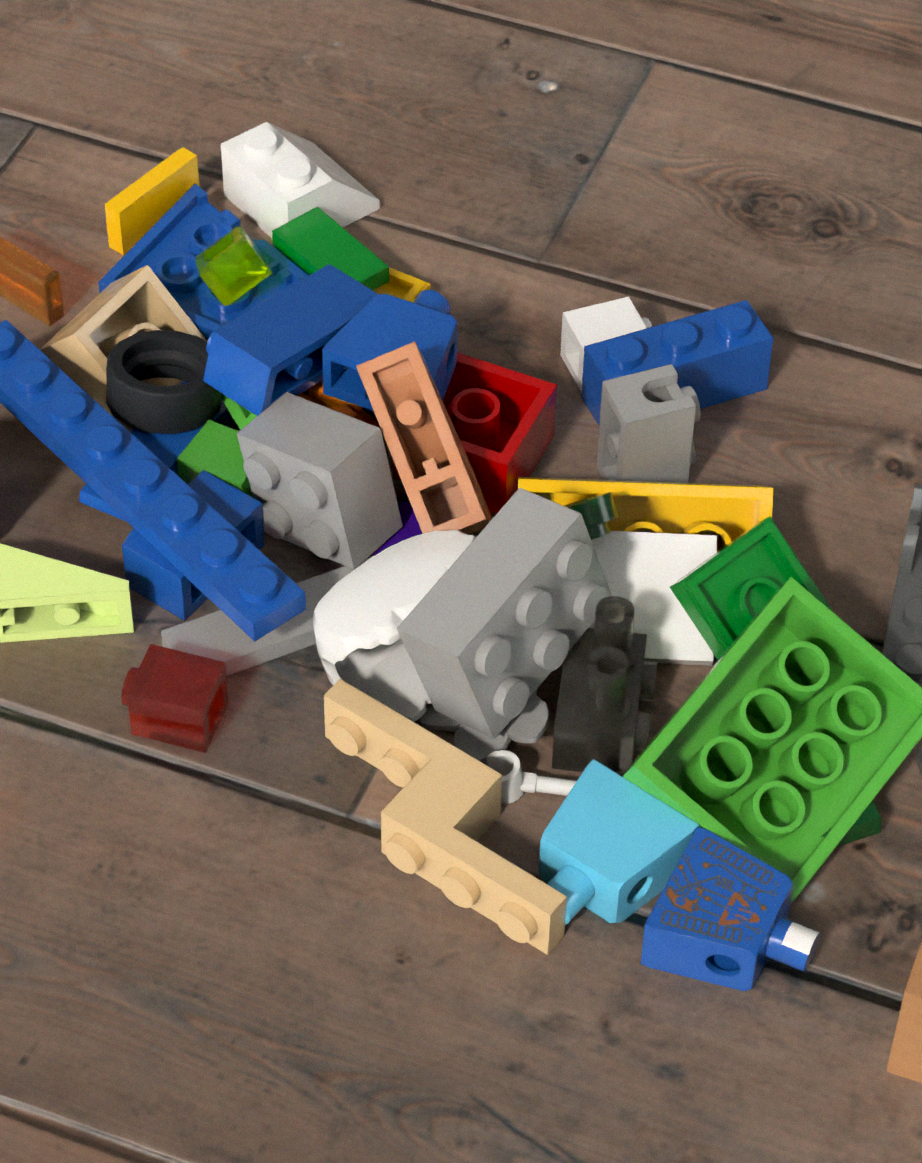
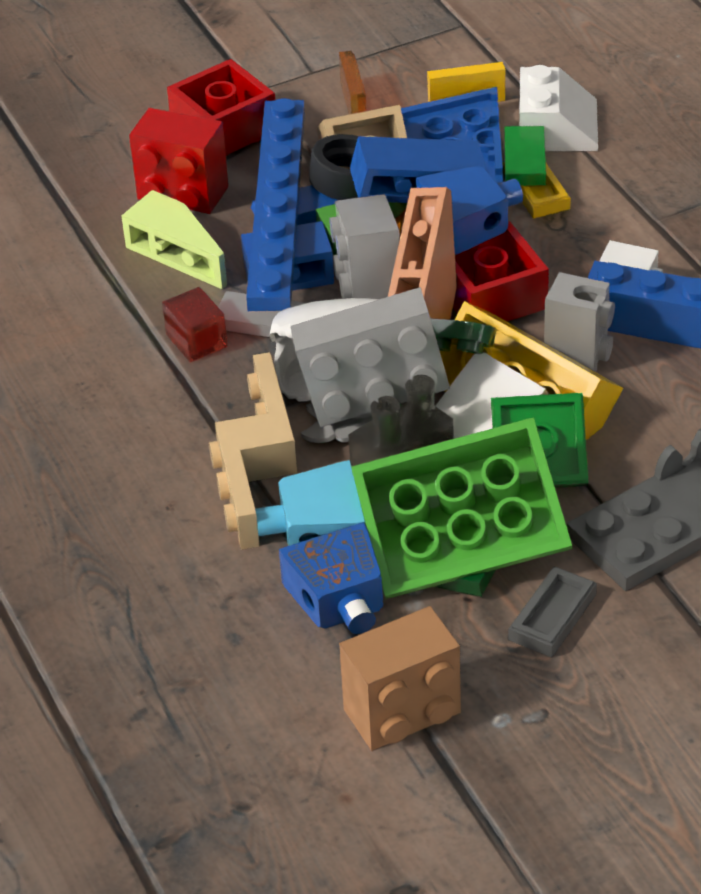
camera: 45 degrees right, 5 degrees down
(232, 266) = (462, 127): clear neon green slope -> none
(517, 782) = (314, 457): white hand -> none

